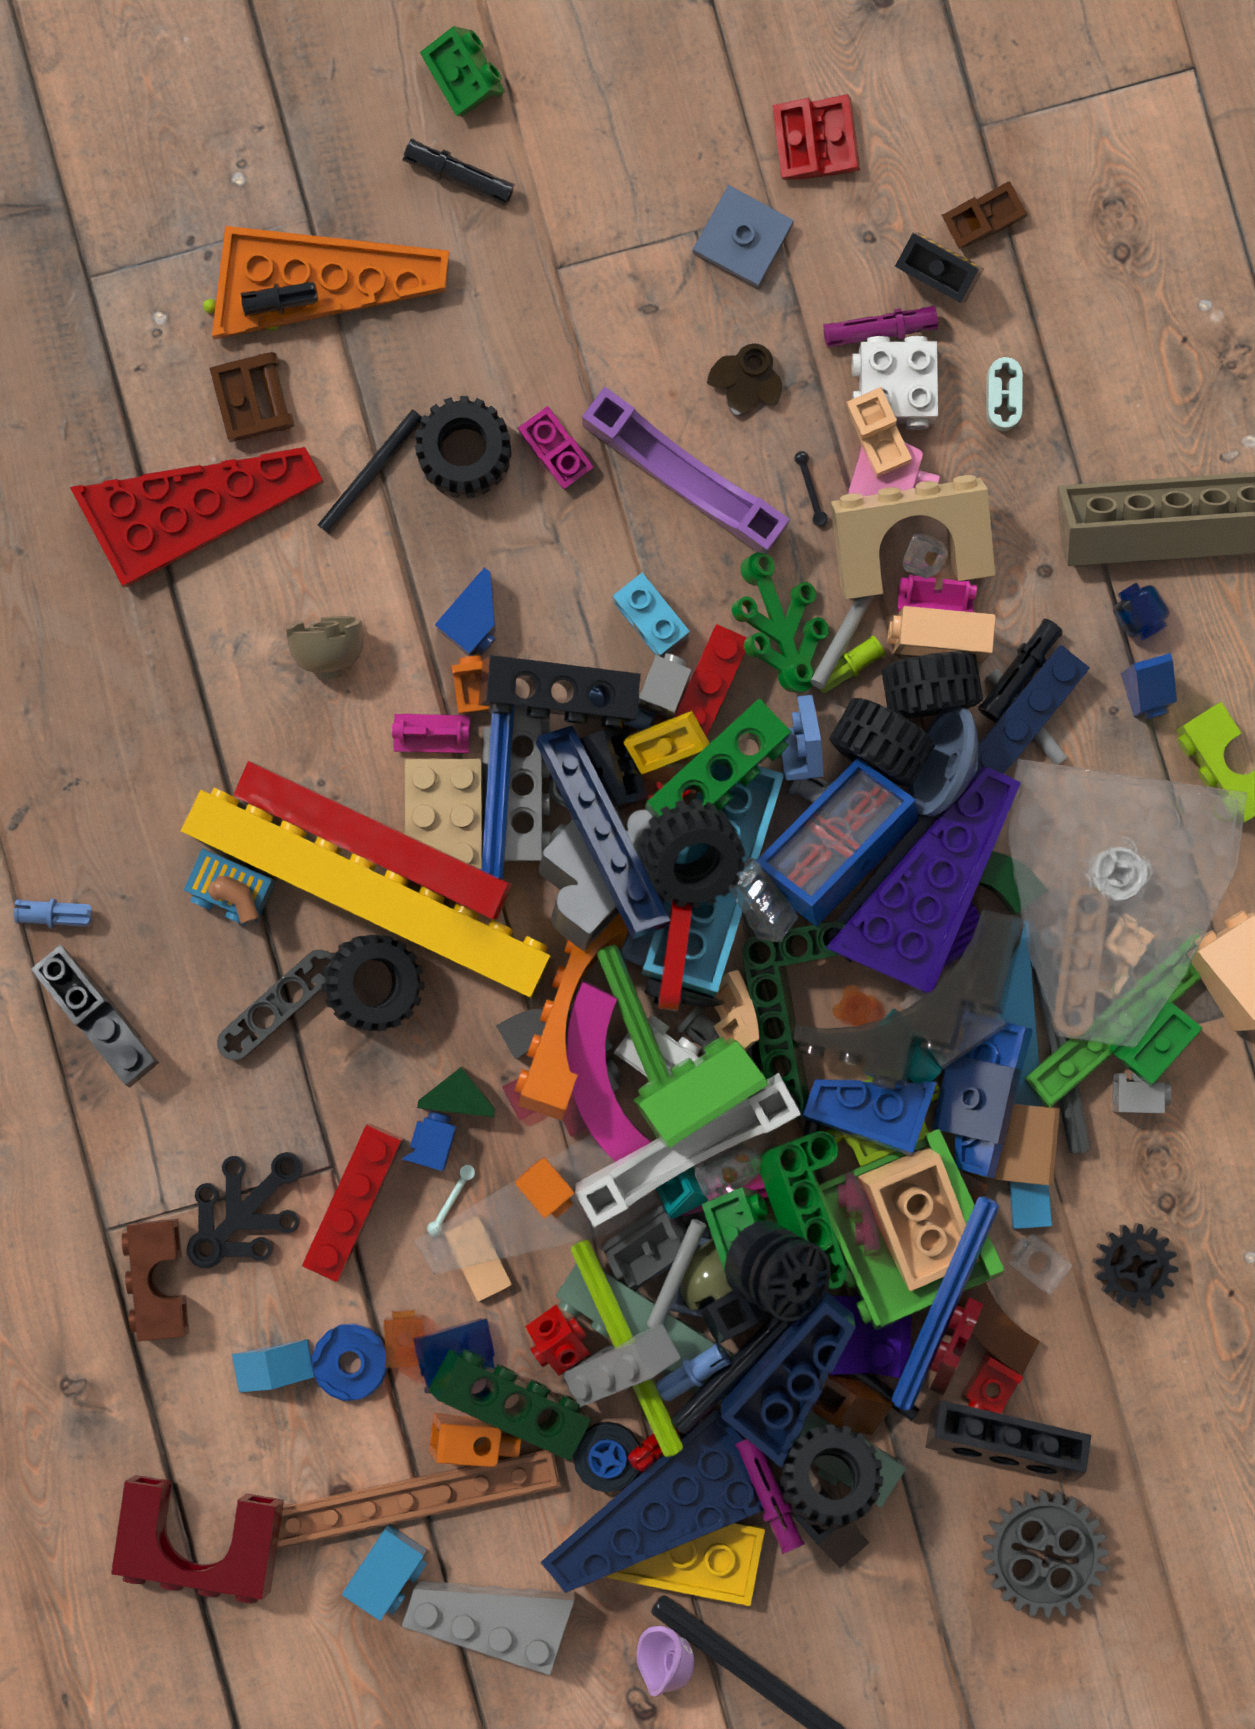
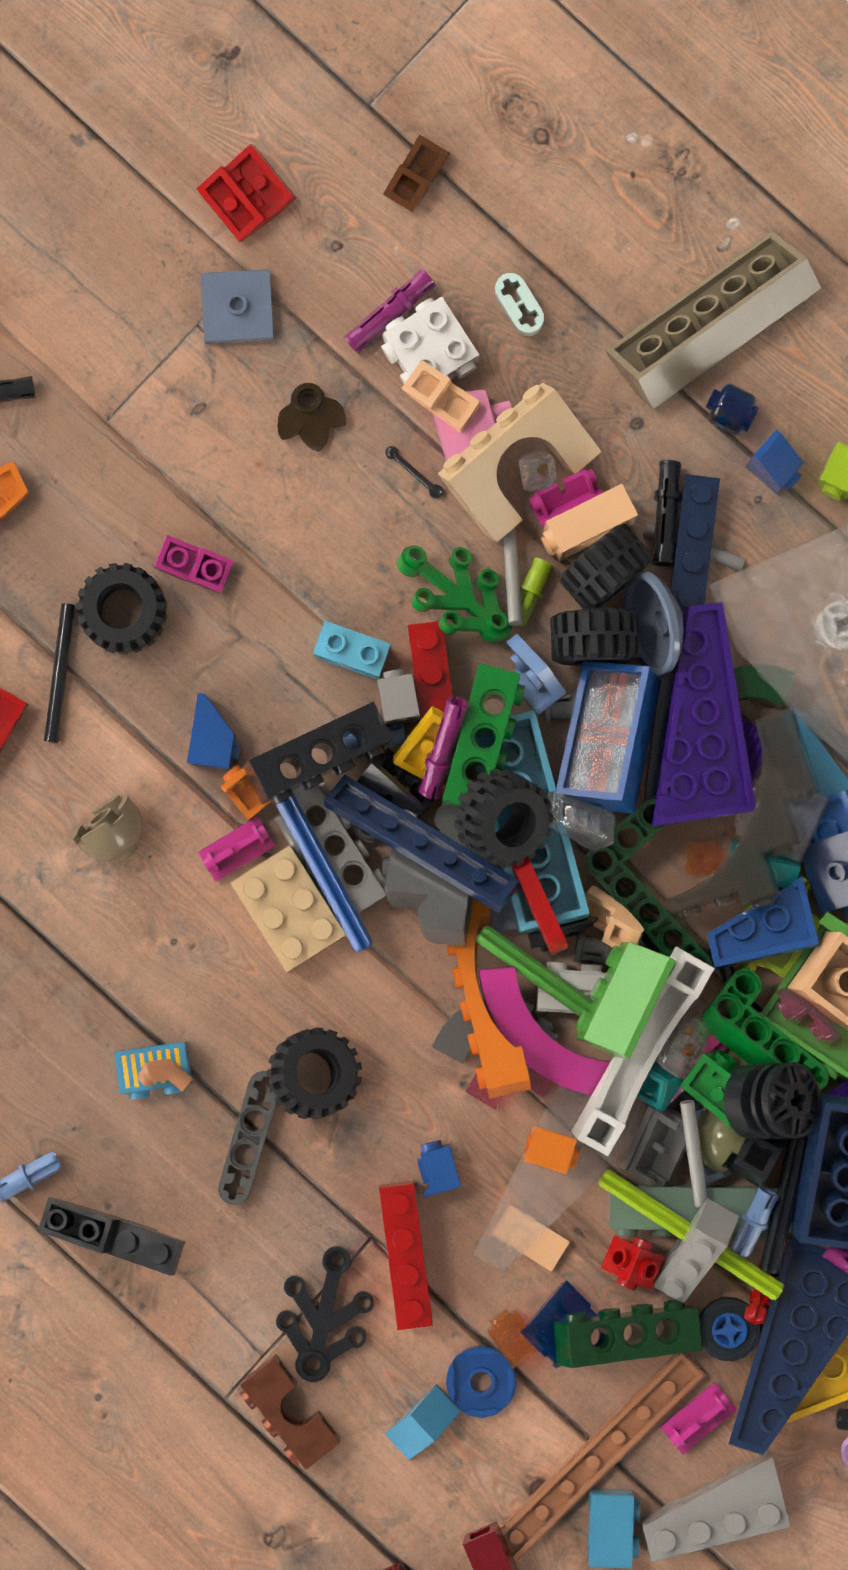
camera: 30 degrees left, 0 degrees up
(365, 893) = (265, 1007): yellow brick -> none
(373, 840) = (244, 962): red tile -> none
(454, 1439) = (601, 1390): orange torso -> none
(458, 1095) = (436, 1119): dark green slope -> none
(466, 1172) = (480, 1176): light aqua hinge -> none
(528, 1522) = (698, 1418): none -> dark pink hinge
(648, 448) = (303, 522): medium lavender arch -> none
(667, 765) = (439, 760): none -> magenta pin
(939, 267) = (407, 237): black brick -> none

